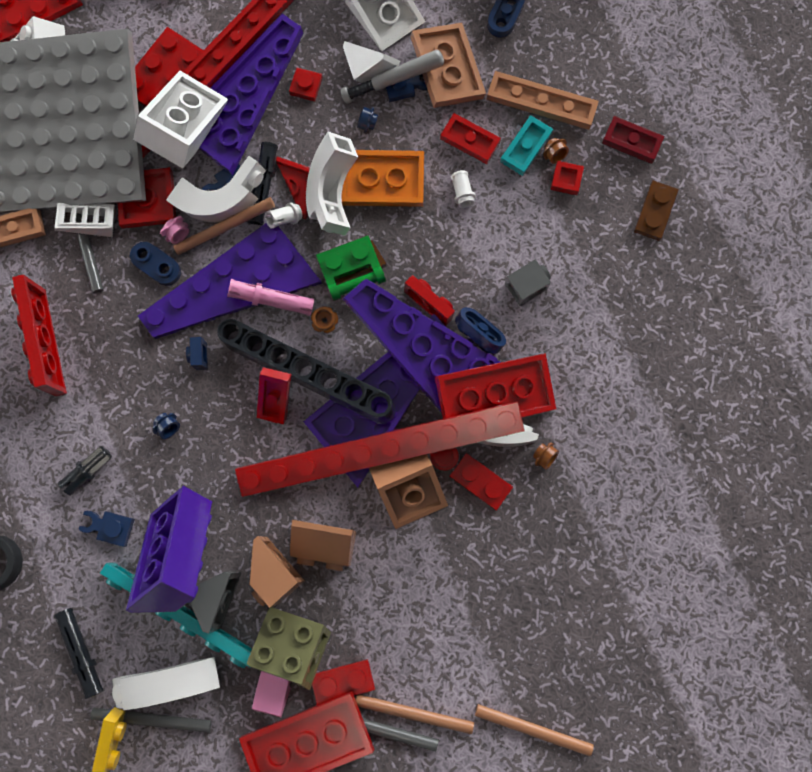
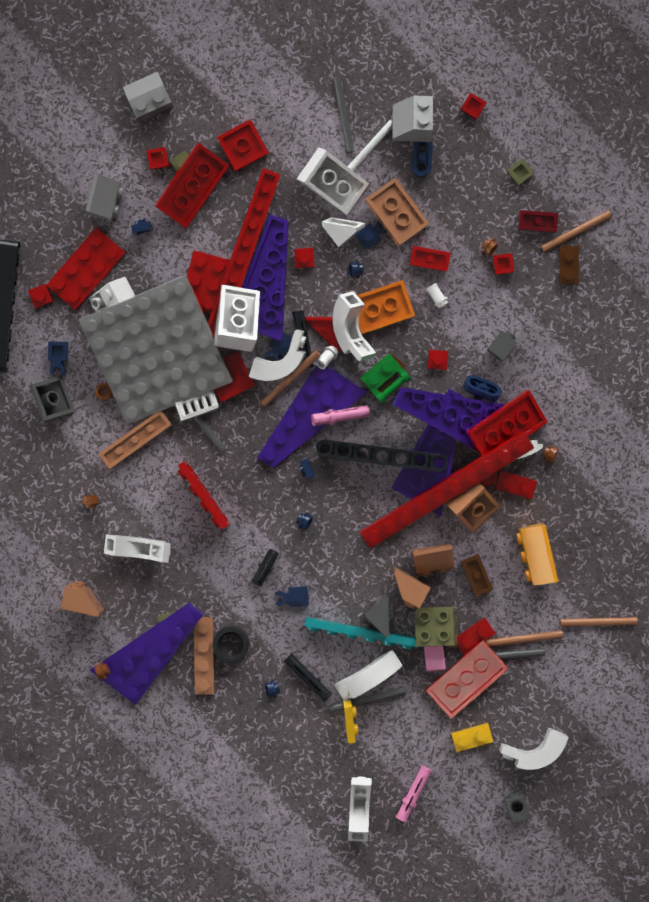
camera: 25 degrees left, 10 degrees up
(21, 651) = (272, 689): none -> dark blue plate
(154, 263) = (253, 418): dark blue plate -> none
(171, 554) = (346, 597): dark purple slope -> none
(175, 230) = (258, 392): bright pink plate -> none
(273, 395) = (367, 479): red plate -> none
(319, 314) = (378, 421): dark orange plate -> none
(378, 592) = (476, 575): none -> reddish brown plate
(400, 73) = (379, 225): light grey piece -> none
(422, 294) = (448, 382): red plate -> none
(434, 272) = (437, 359): none -> red plate
(475, 594) = (537, 554): none -> light orange slope
(526, 145) = (469, 250): teal plate -> none
(542, 100) = (468, 214): nougat plate -> none
(630, 70) = (520, 171): none -> olive plate
(680, 171) = (576, 231): none -> nougat piece

